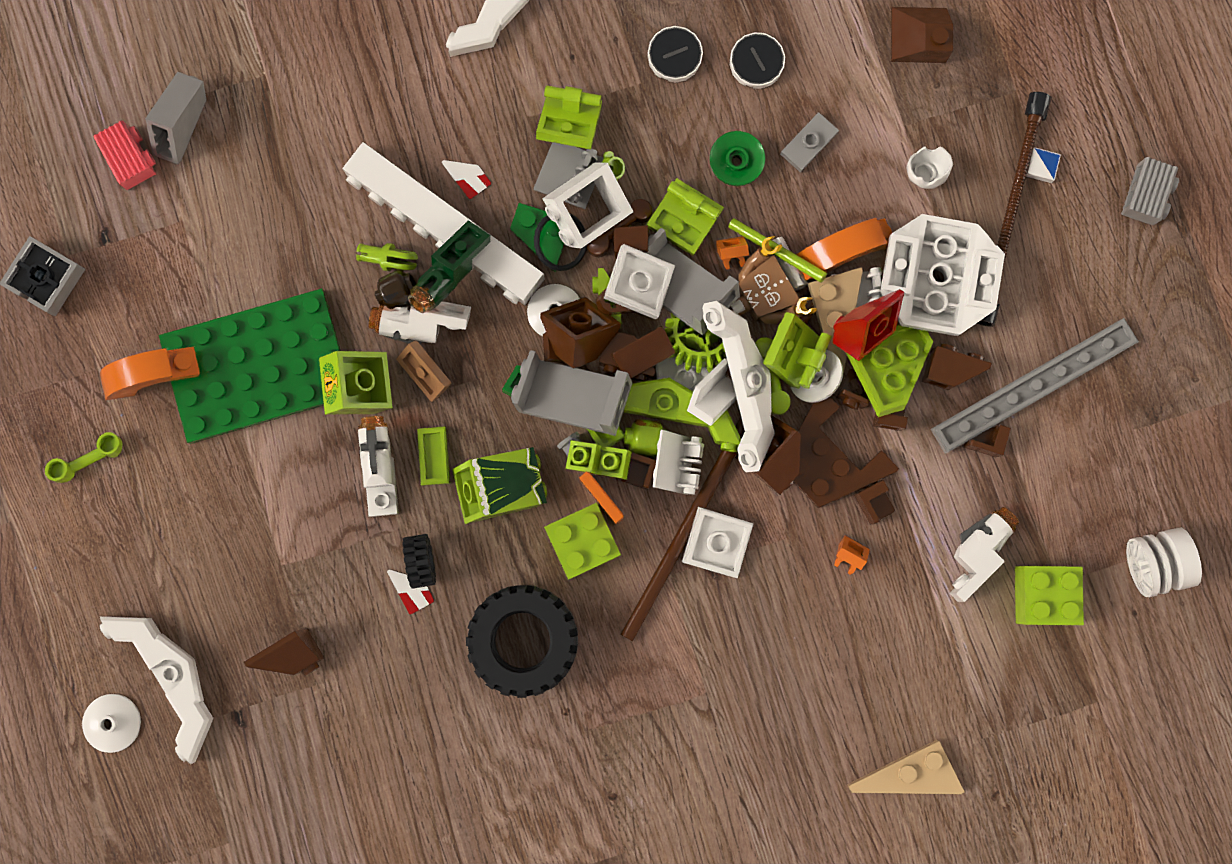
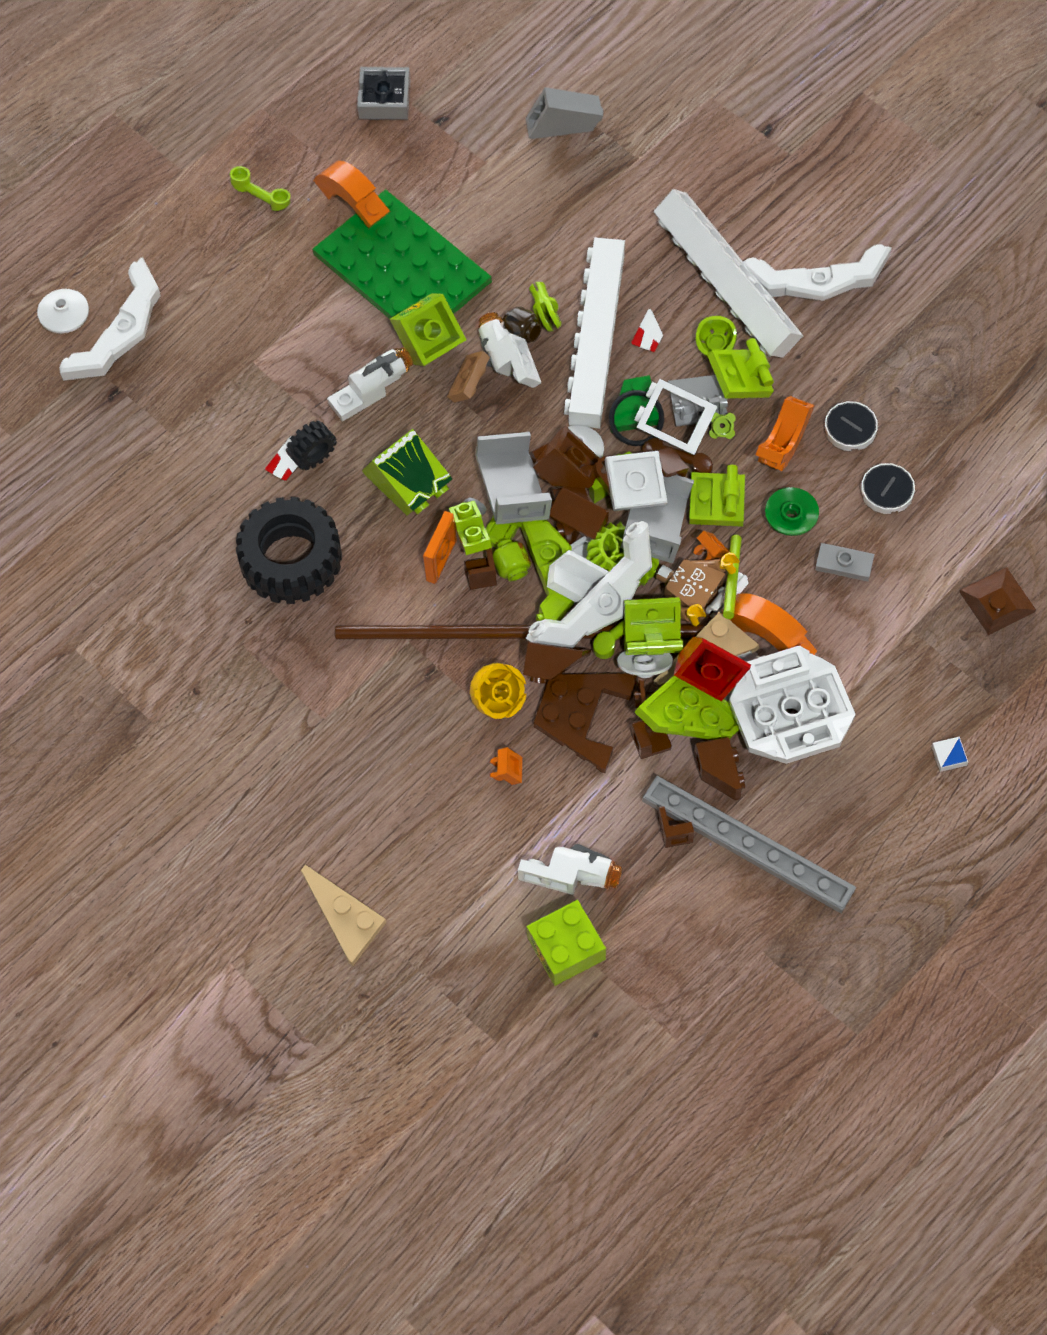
camera: 65 degrees right, 20 degrees down
(125, 155) = (512, 98): coral brick -> none
(289, 655) = (186, 392): reddish brown slope -> none
(433, 456) = (402, 420): lime tile -> none
(449, 267) = (561, 343): dark green plate -> none
(452, 68) = (728, 274): none -> white brick
(517, 120) = (716, 340): none -> lime helmet
(582, 541) = (395, 556): lime brick -> none
(657, 119) = (786, 433): none -> orange arch
(675, 462) = (503, 588): white hinge -> none
(717, 542) = (454, 657): white tile -> none
(778, 525) = (498, 690): none -> yellow cylinder
(875, 502) = (564, 763): reddish brown panel -> none
(929, 167) = (882, 660): white hair -> none
(1036, 111) = (994, 723): reddish brown hose -> none
(1150, 191) = (984, 851): light grey brick -> none
(1164, 562) = (646, 1013): white wheel -> none

